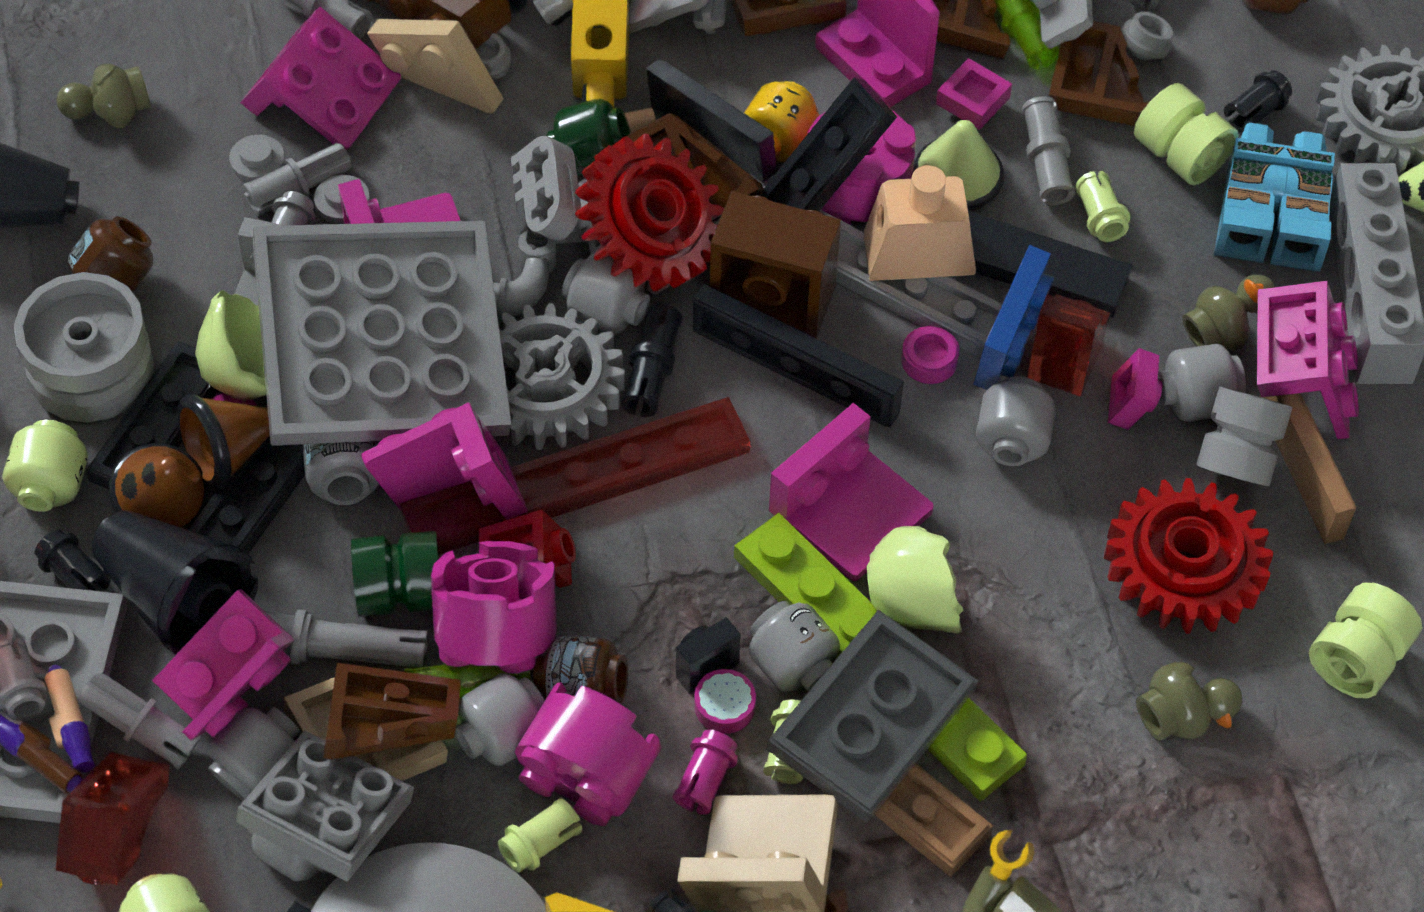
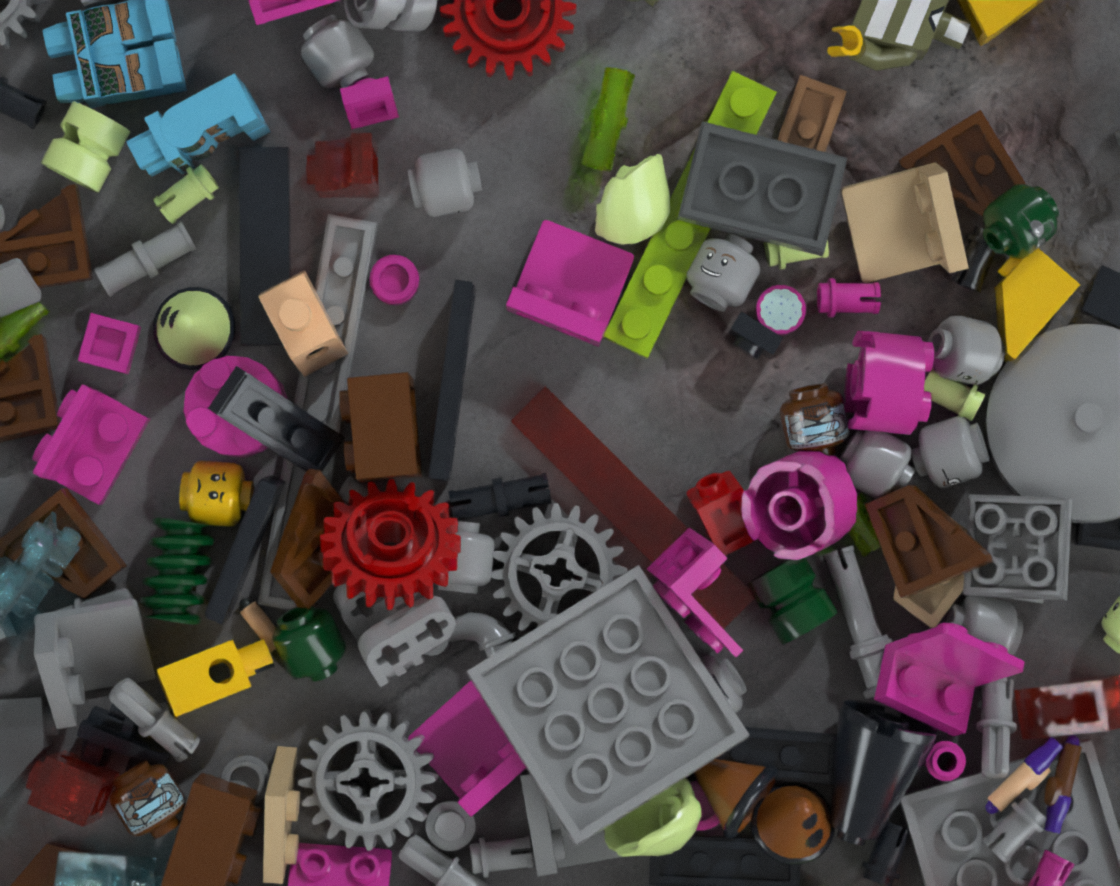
camera: 105 degrees left, 30 degrees up
(135, 647) = (954, 766): none -> dark pink pin
(429, 149) = (325, 781): none -> light grey gear
(473, 801) = (950, 452): none -> light grey head
(583, 857) = (967, 350): none -> light grey head
(714, 65) = (177, 571): none -> dark green piece
(1015, 319) = (355, 208): blue plate -> none
(1022, 608) = (608, 119): none -> clear neon green pin
(1168, 226) = (197, 127): none -> medium azure hips
(1222, 315) = (265, 56): olive animal -> none

